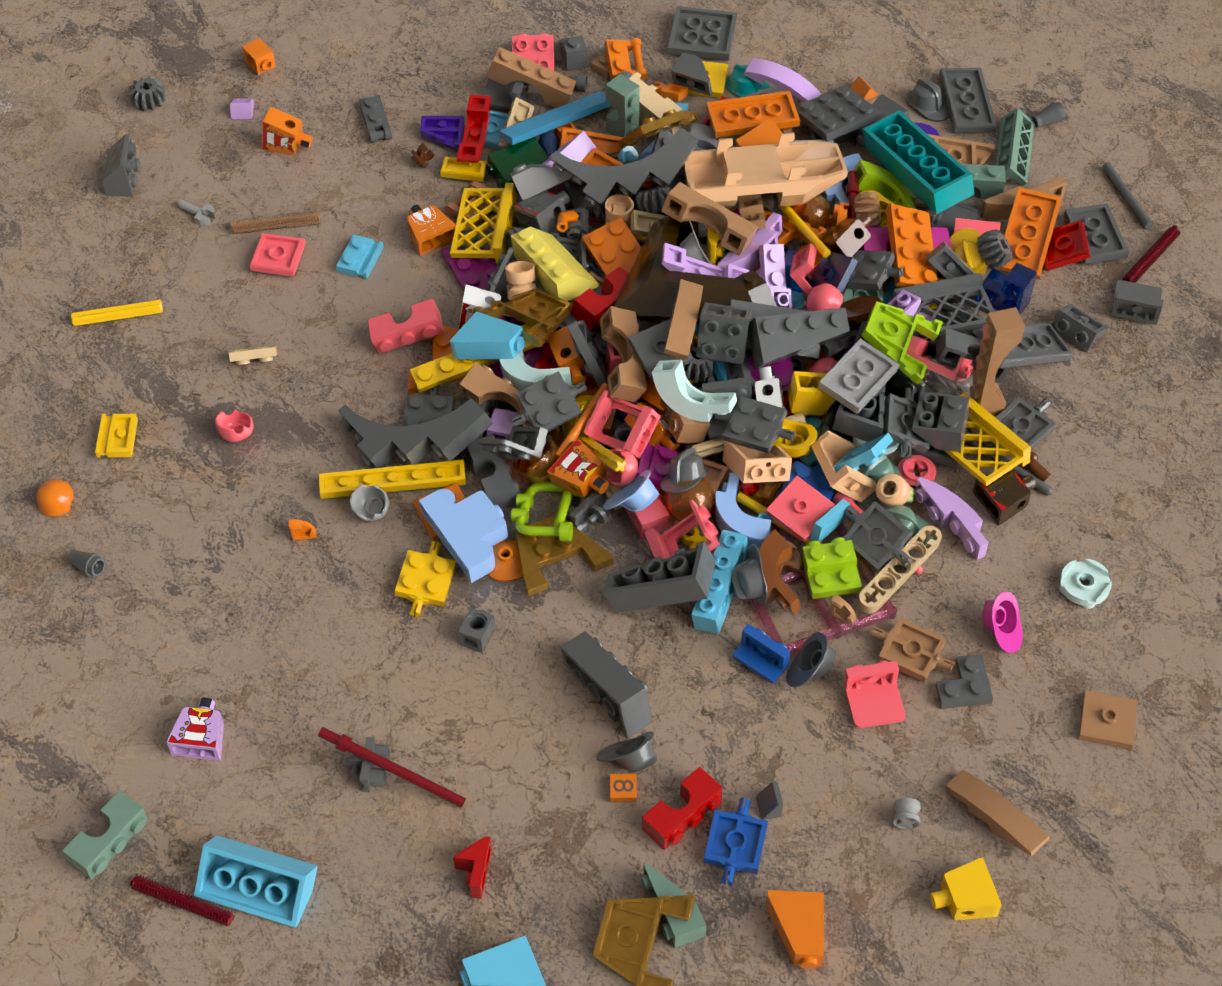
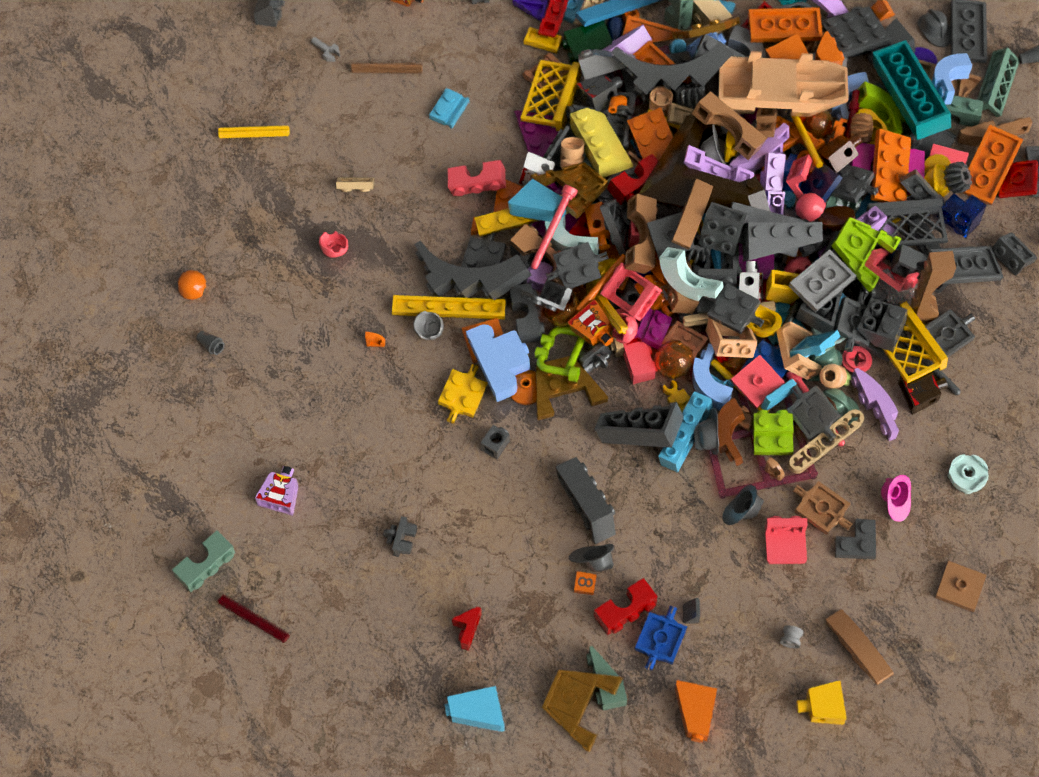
camera: 10 degrees right, 10 degrees up
(116, 435) = (243, 239): yellow plate -> none
(254, 880) = (307, 612): medium azure slope -> none
(277, 254) = (384, 97): coral plate -> none
(345, 743) = (384, 520): dark red bar -> none
(420, 156) = (511, 23): reddish brown plate -> none
(429, 228) = (507, 91): orange torso -> none
(524, 318) = (567, 193): none -> coral piece
(636, 495) = (632, 352): light blue piece -> none
(666, 544) = (649, 394): coral window -> none
(684, 468) = (672, 336): dark grey piece -> none
(762, 654) = (707, 495): blue bracket -> none
(811, 130) = (828, 50): none -> orange slope
(959, 136) = (948, 69): none -> light blue arch
(1036, 468) = (951, 371): reddish brown arm -> none

